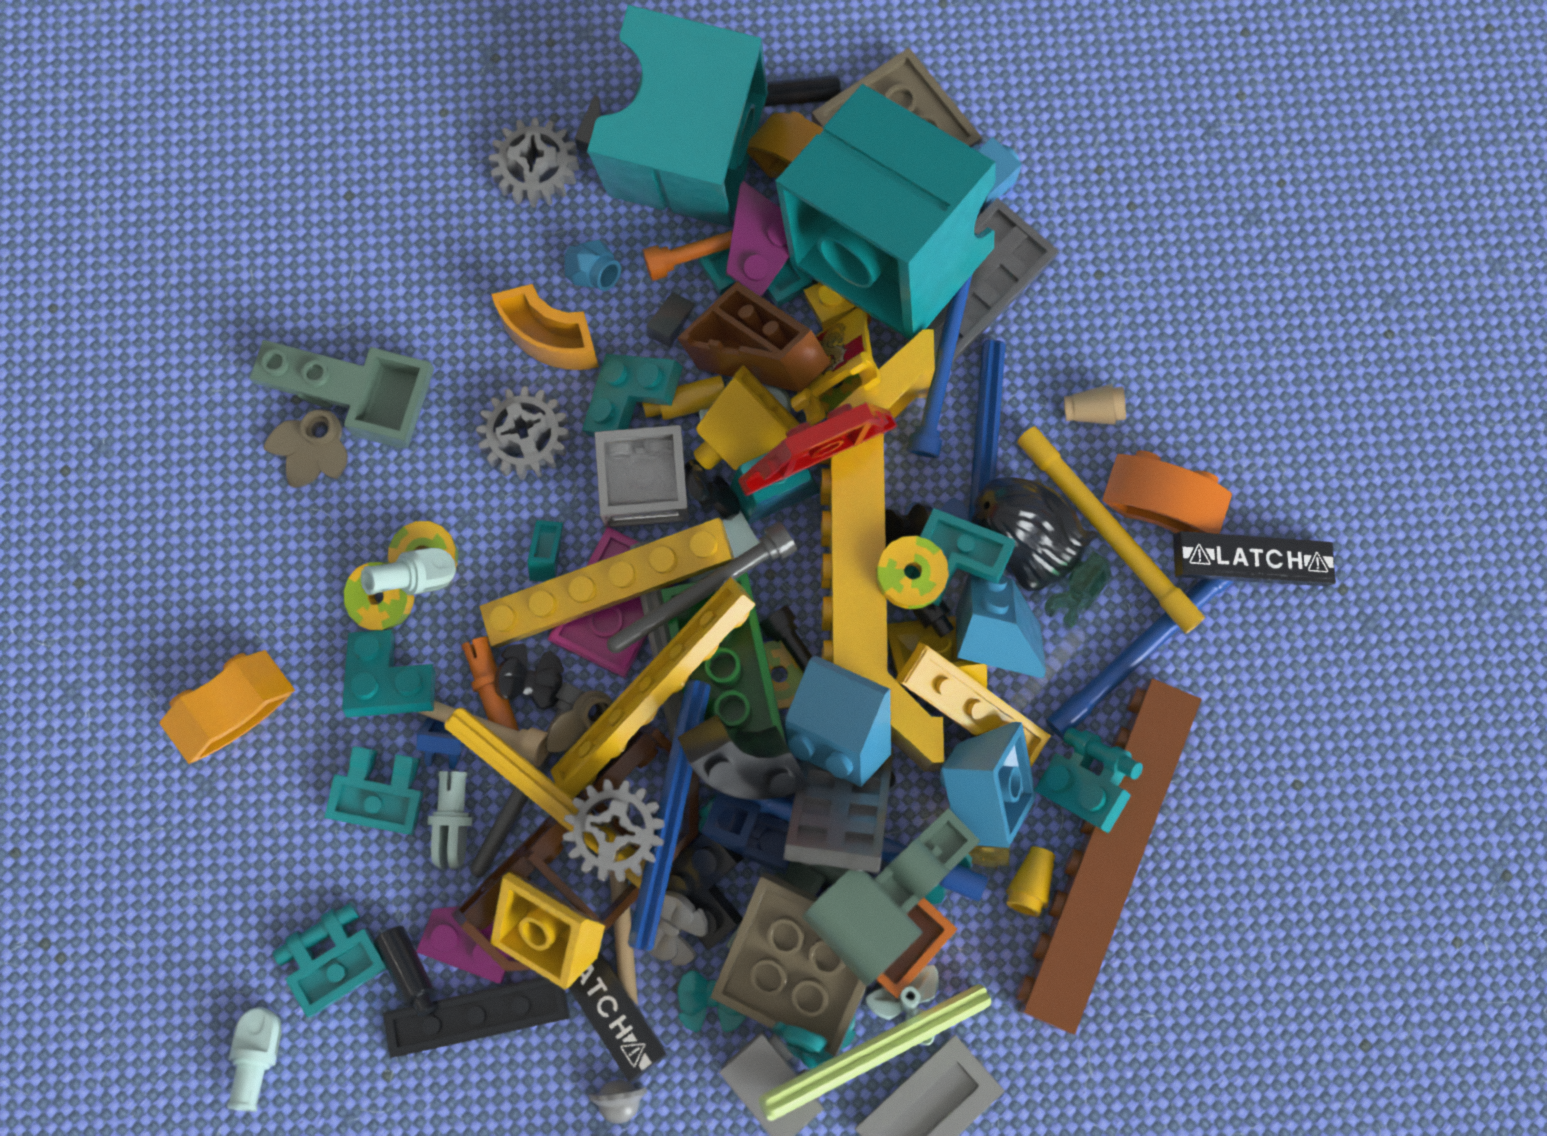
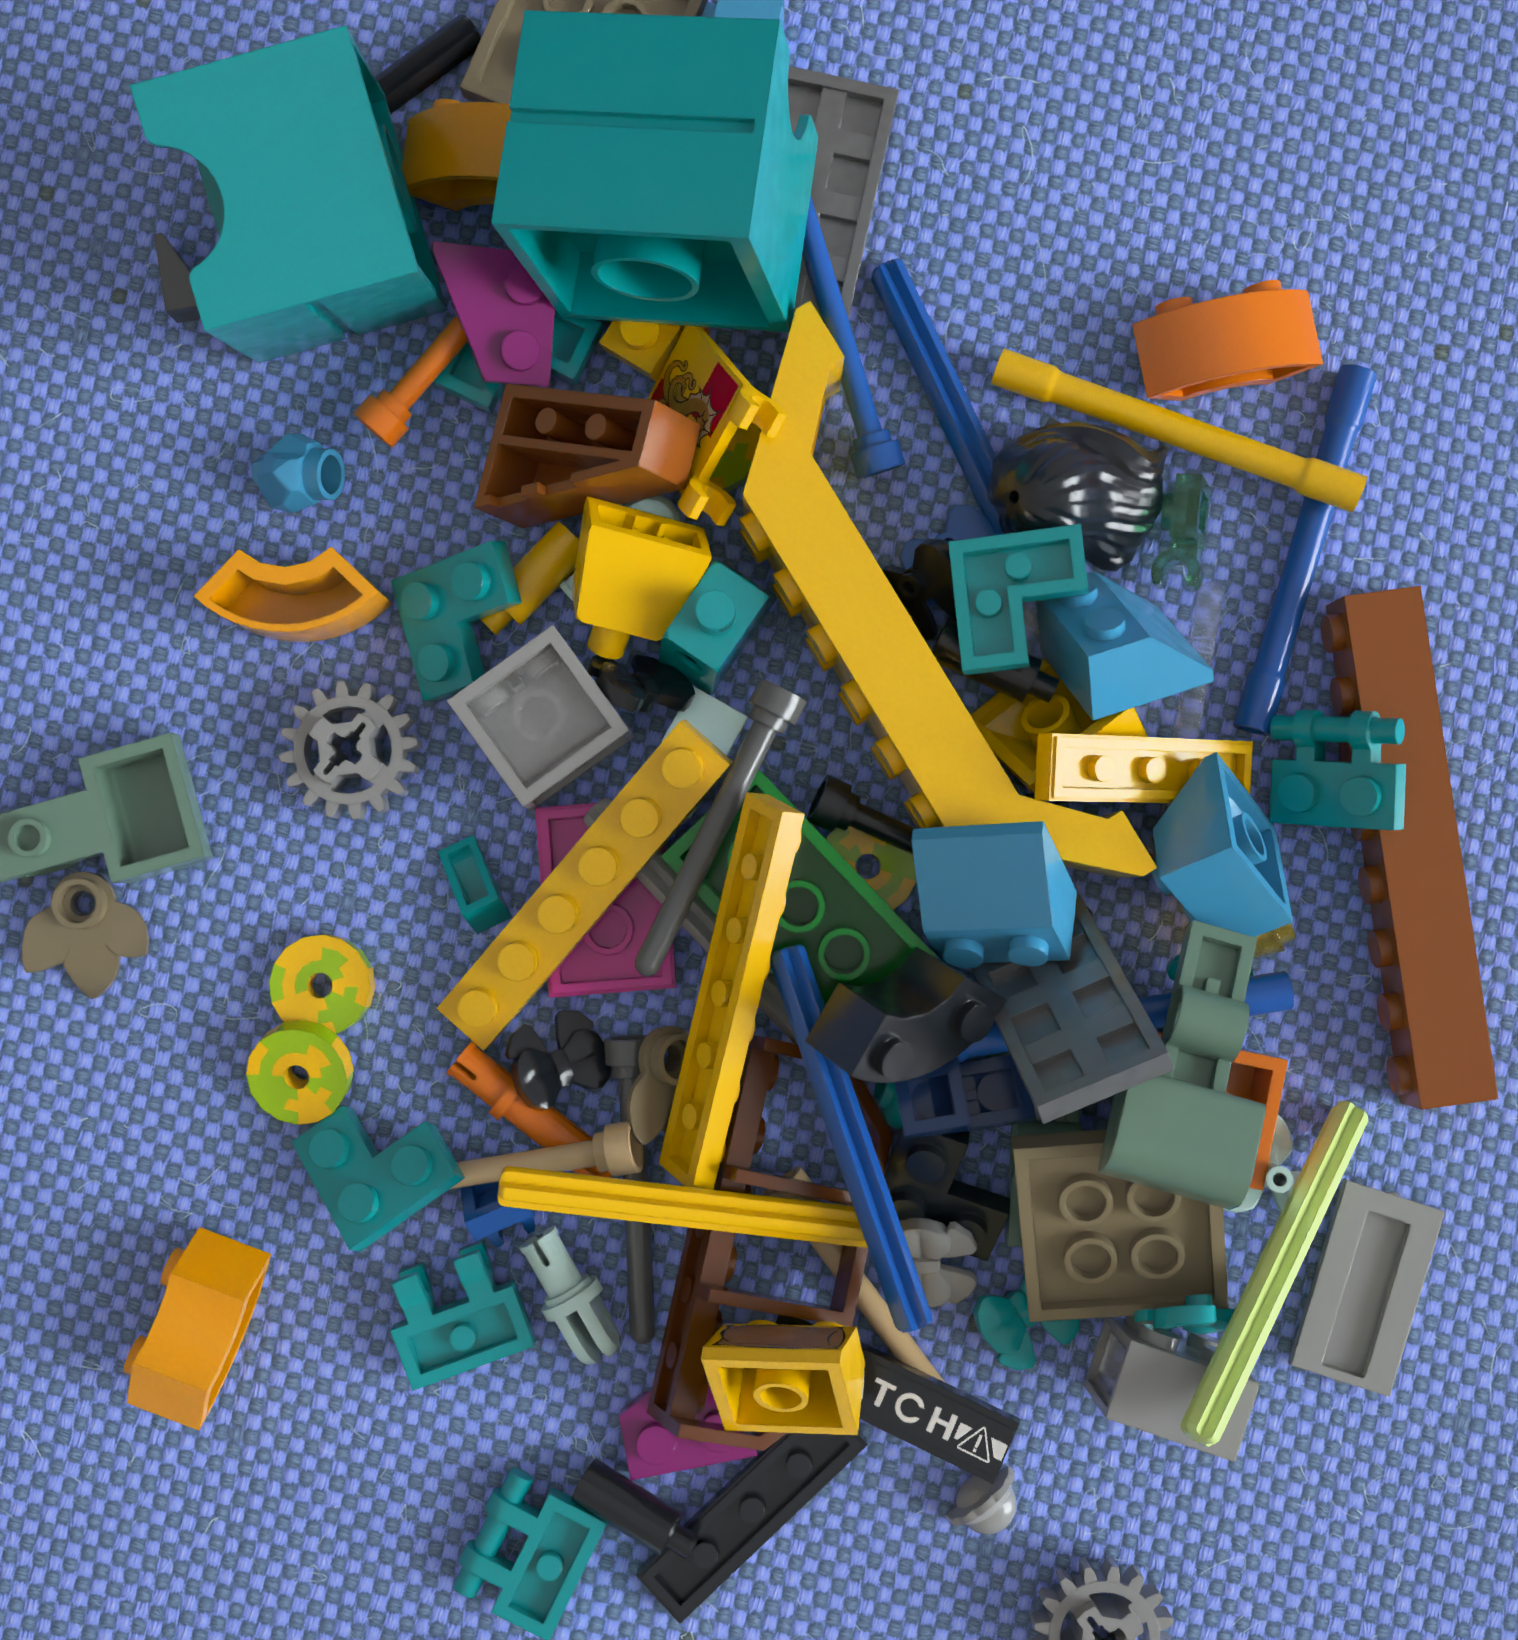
camera: 30 degrees left, 10 degrees up
(412, 572) = (326, 1023): light aqua arm -> none
(550, 169) = (103, 375): light grey gear -> none
(618, 809) = (767, 1217): light grey gear -> none
(669, 319) = (445, 483): dark grey piece -> none
(813, 444) = (749, 562): red wing -> none
(912, 592) = (982, 617): yellow piece -> none
(1031, 885) = (1334, 939): yellow cone -> none
(1096, 405) = (1067, 273): tan cone -> none
(1253, 559) = (1382, 362): black tile -> none

